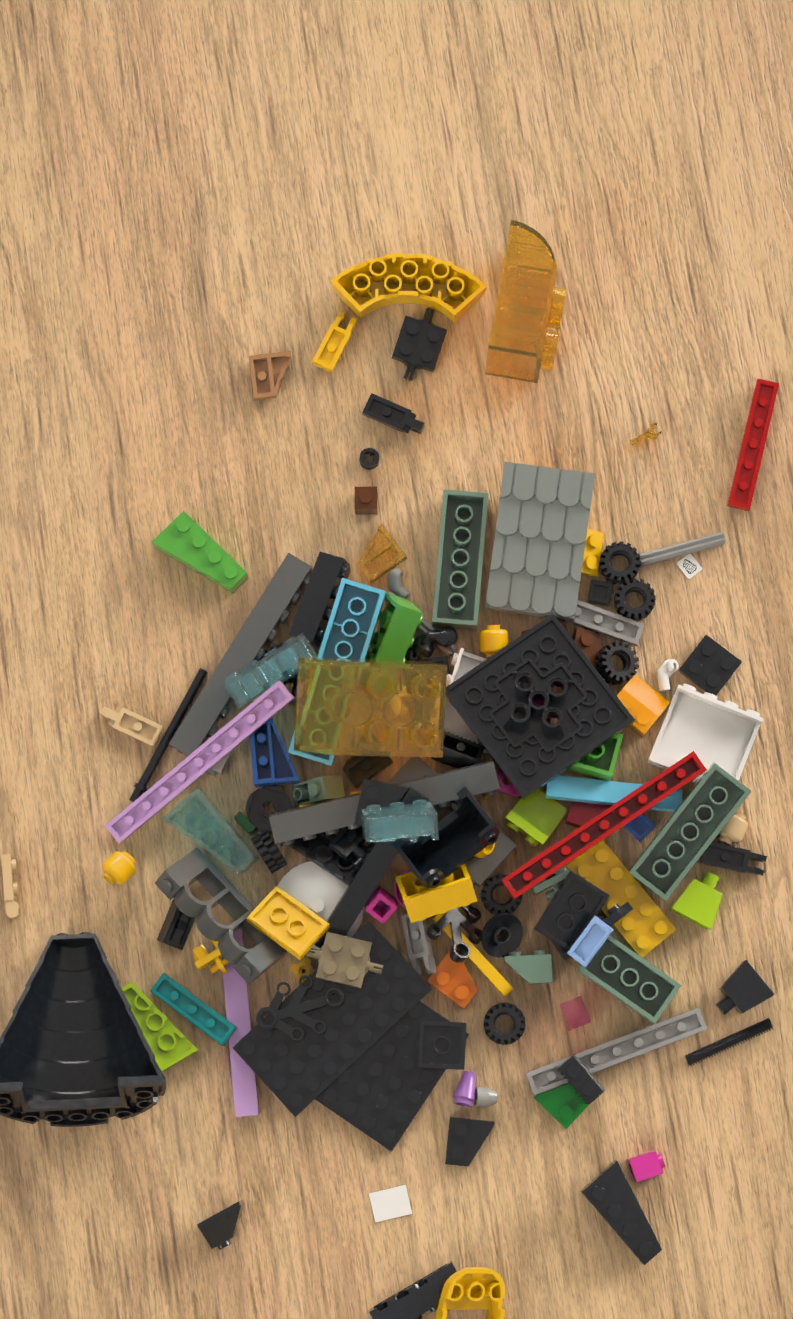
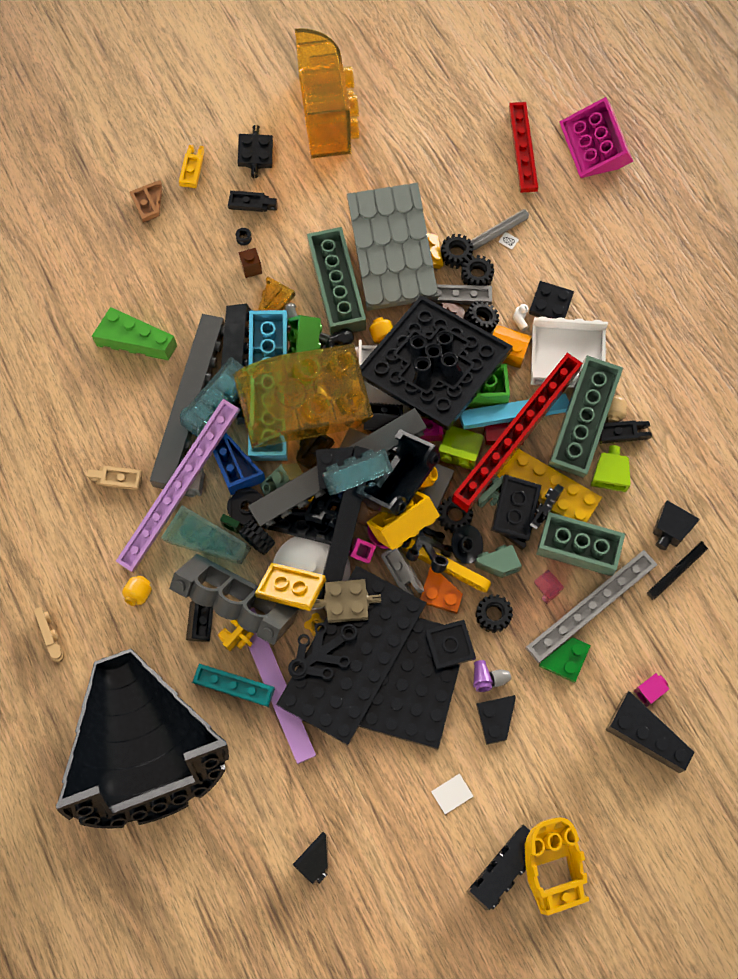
camera: 20 degrees left, 10 degrees down
(140, 787) = (146, 483): black bar -> none
(163, 1037) = (219, 717): lime wing -> none
(411, 280) = (234, 111): yellow brick -> none
(580, 1079) = (574, 635): black brick -> none
(590, 941) = (541, 521): light blue tile -> none
(600, 593) = (450, 276): black tile -> none
(640, 827) = (543, 431): blue tile -> none
(649, 434) = (446, 162): clear yellow hand -> none

